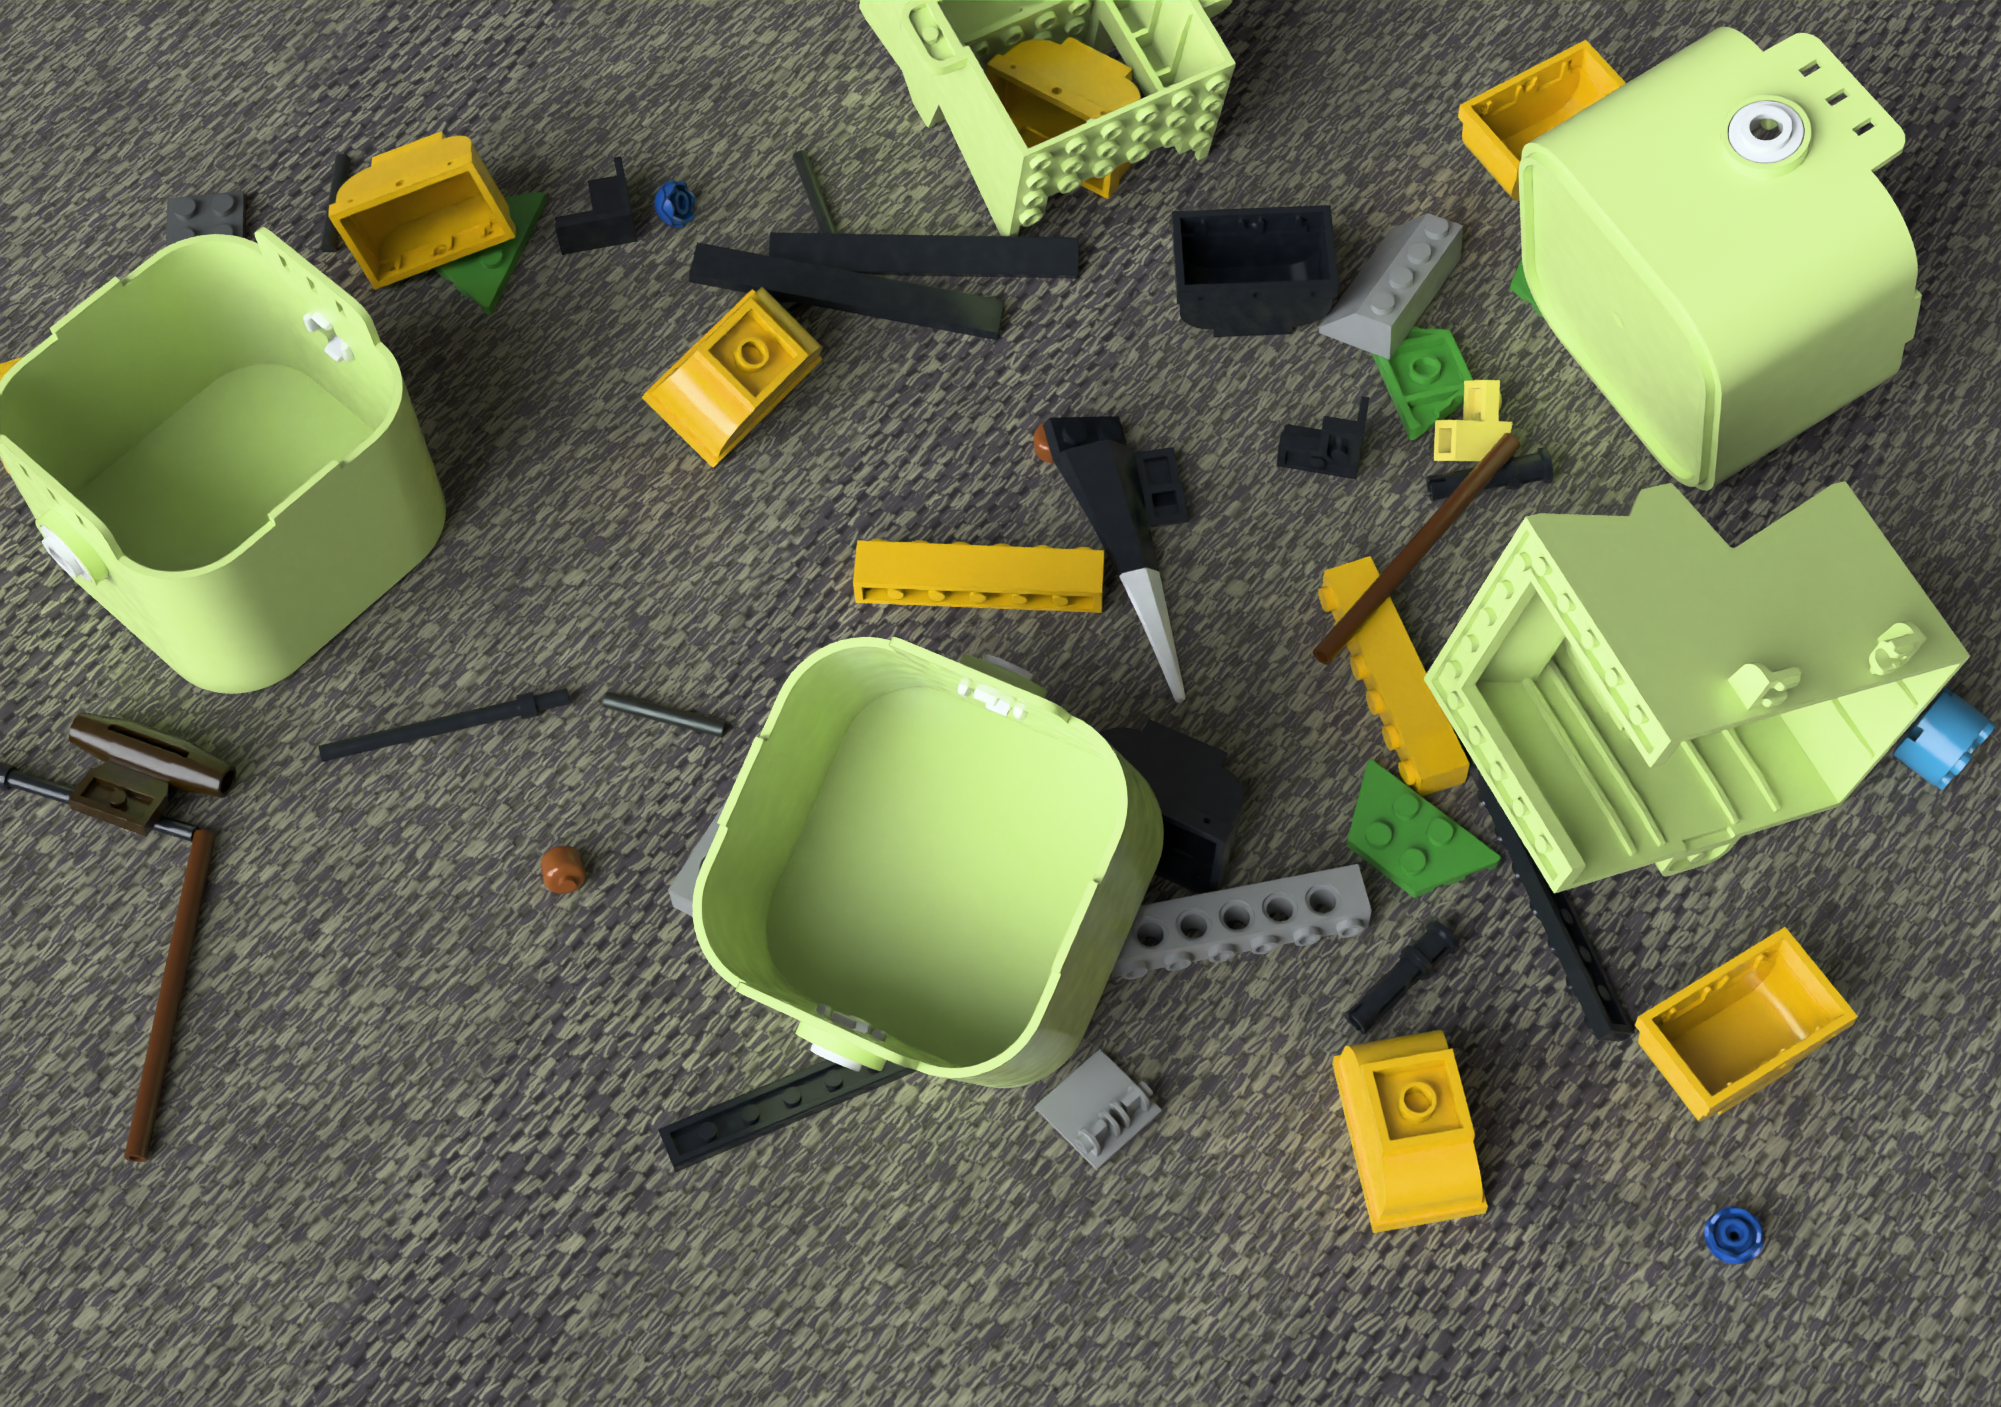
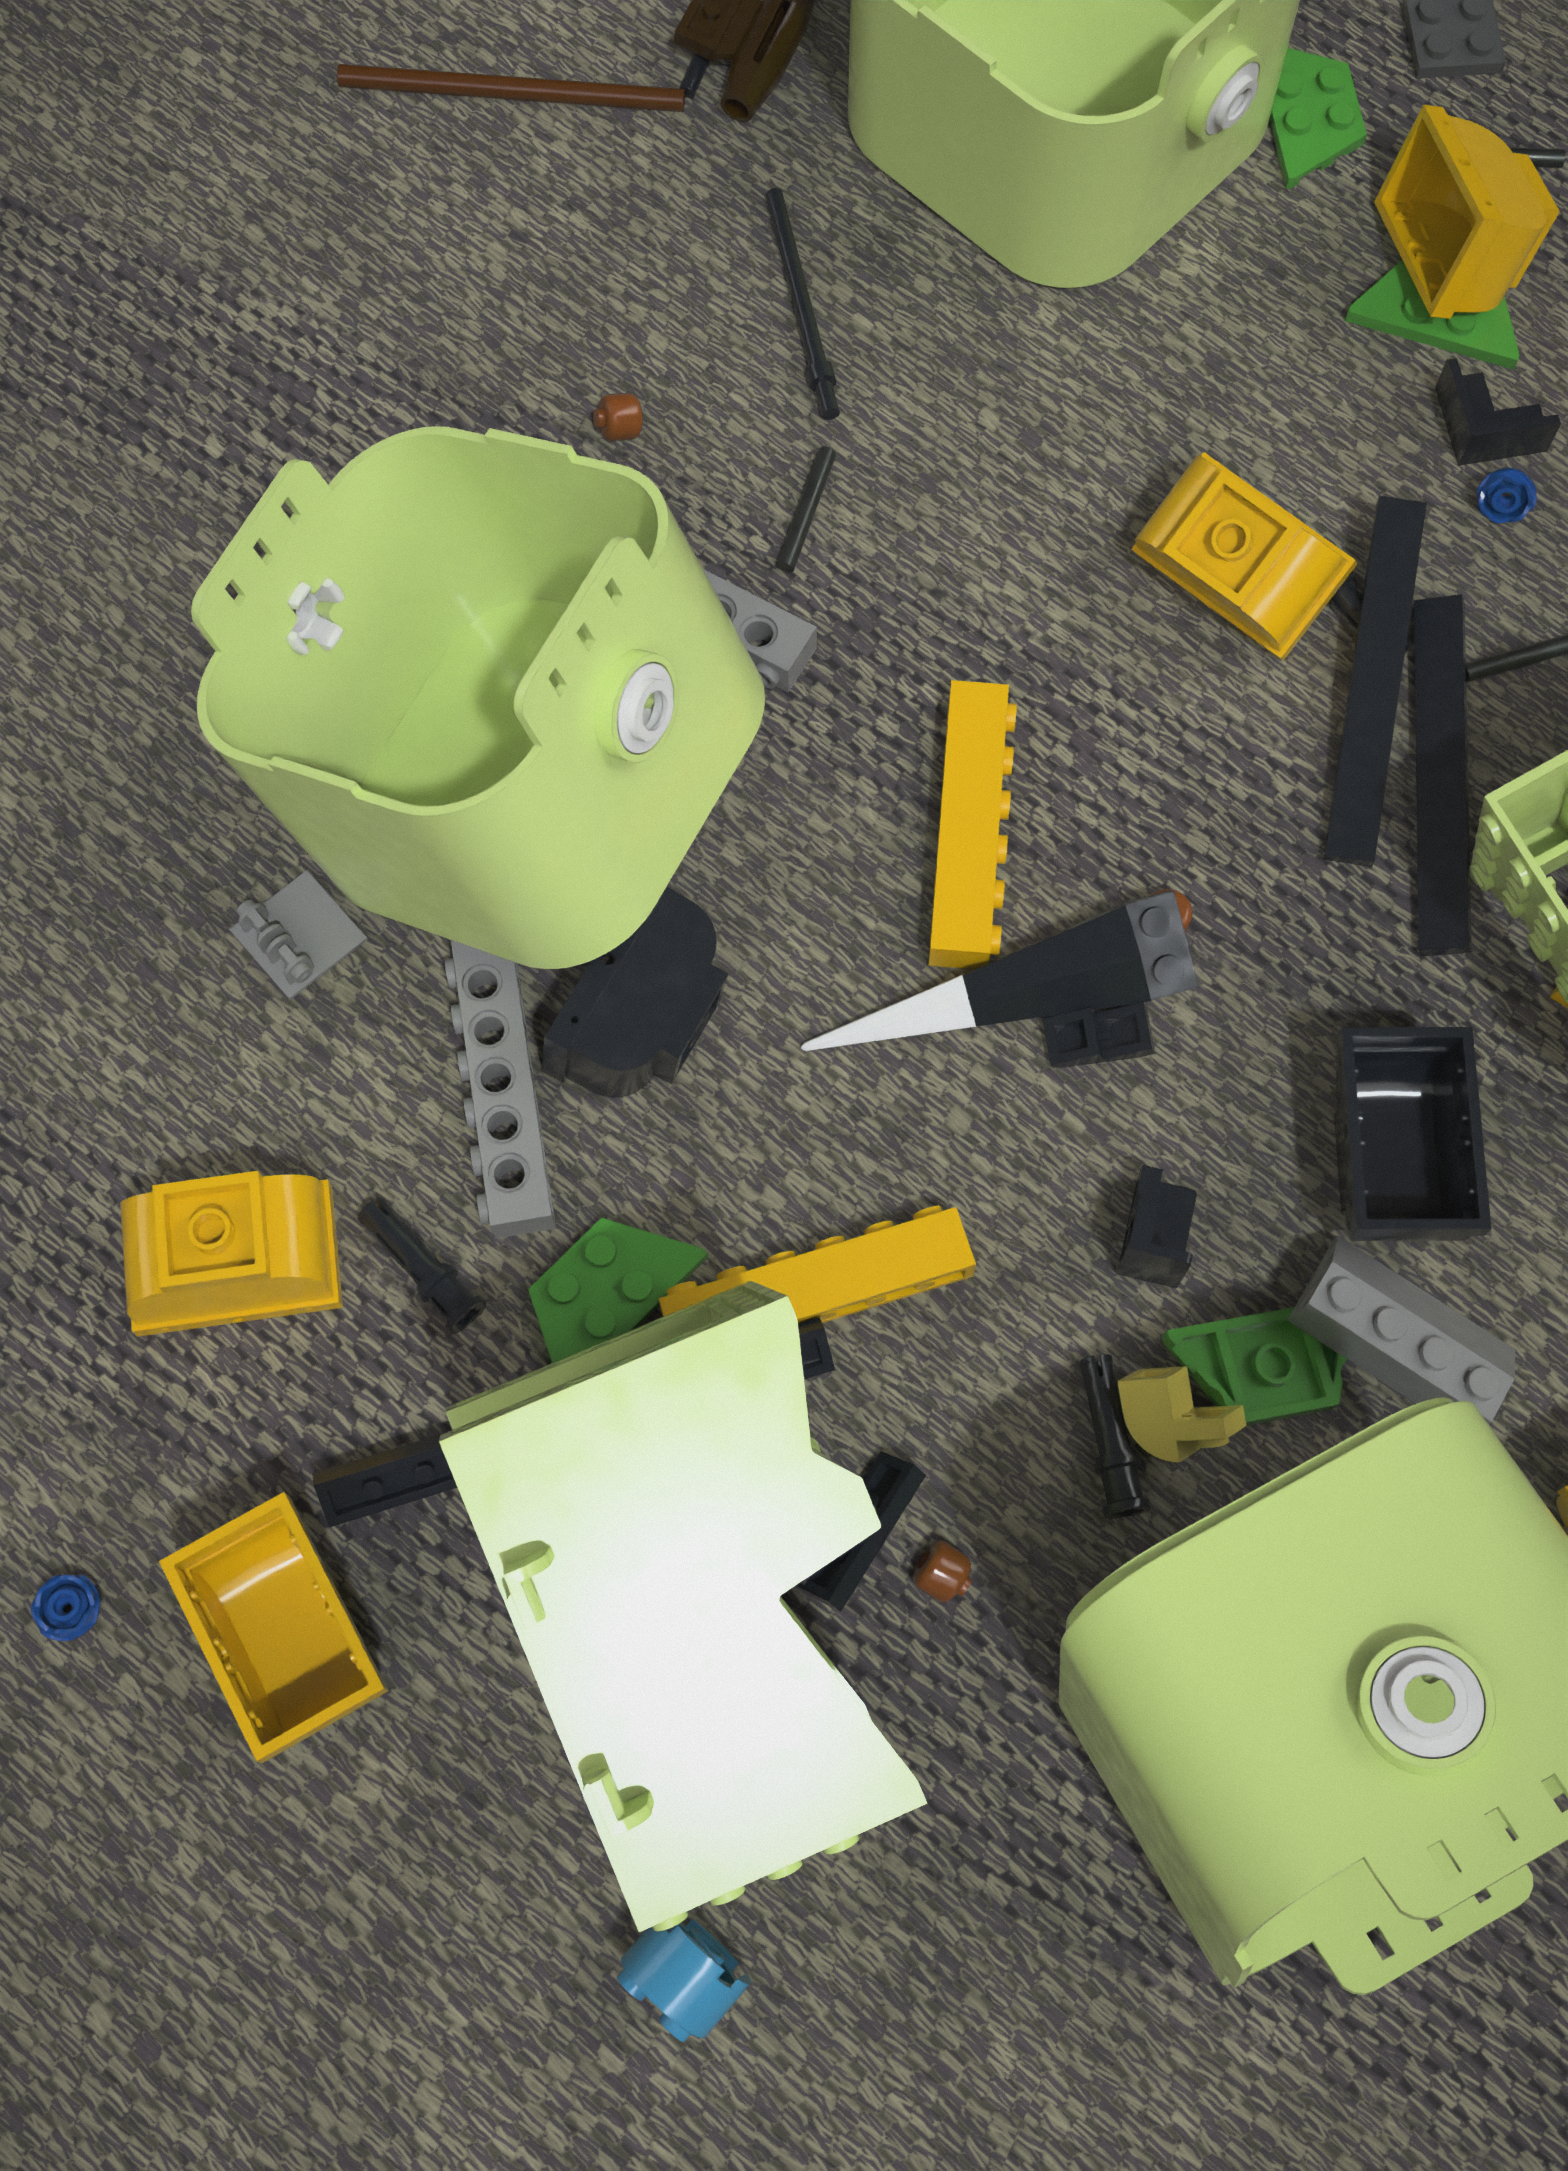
camera: 90 degrees right, 10 degrees up
(1416, 549) = (986, 1322): reddish brown piece -> none

